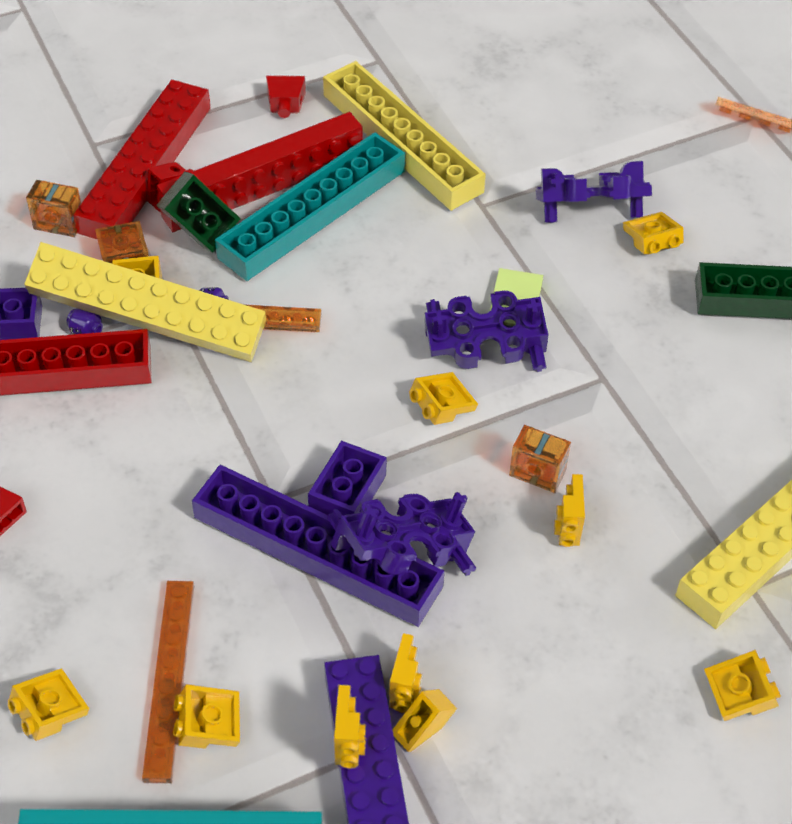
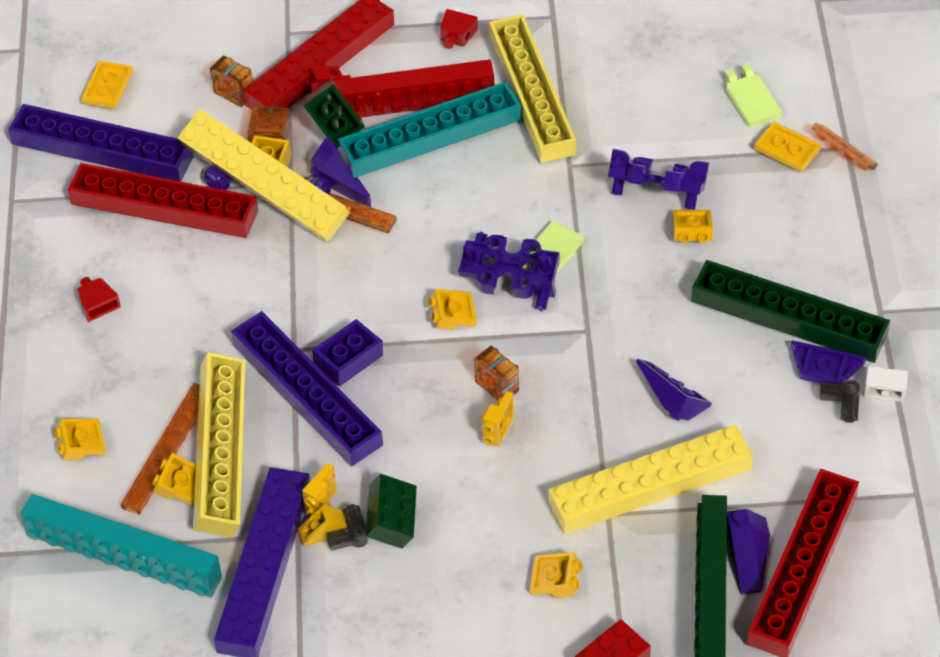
camera: 25 degrees right, 0 degrees up
(216, 269) = (329, 165): none -> dark purple wedge
(245, 657) = (219, 445): none -> light yellow brick
(349, 733) = (254, 510): yellow plate -> none
(393, 552) = (397, 411): dark purple gear -> none
(461, 722) = (347, 536): none -> clear smoke piece
(505, 670) = (391, 511): none -> dark green brick
(632, 89) = (752, 97): none -> yellowish green tile
(700, 129) = (787, 146): none -> yellow plate
(752, 426) = (675, 398): none -> dark purple wedge

